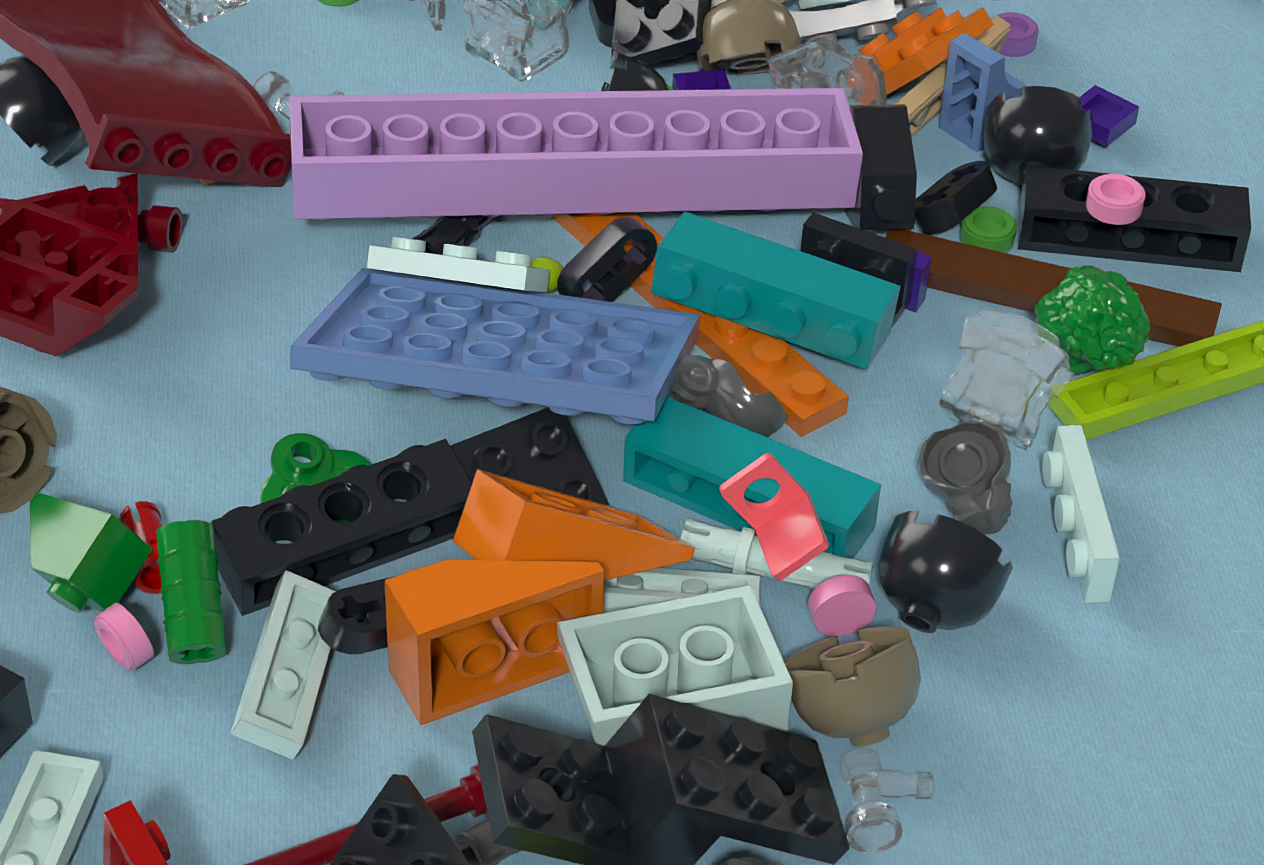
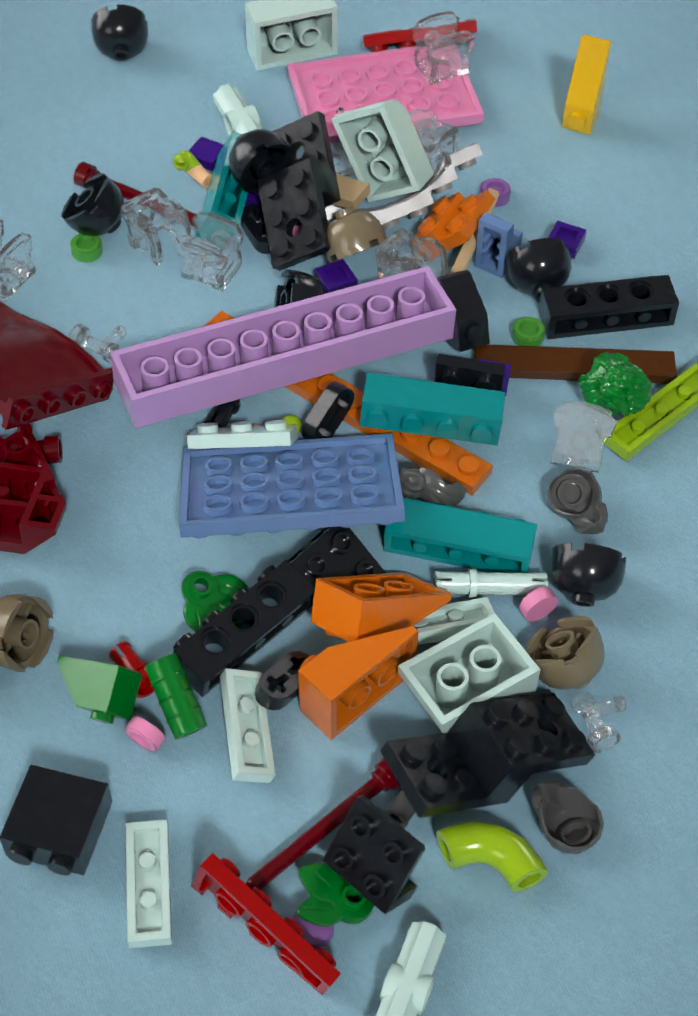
camera: 15 degrees left, 10 degrees up
(785, 524) = (494, 564): coral bracket -> none
(954, 197) = (505, 315): black beam -> none
(1081, 514) = (646, 510): light aqua plate -> none
(1115, 199) = (600, 301): bright pink tile -> none

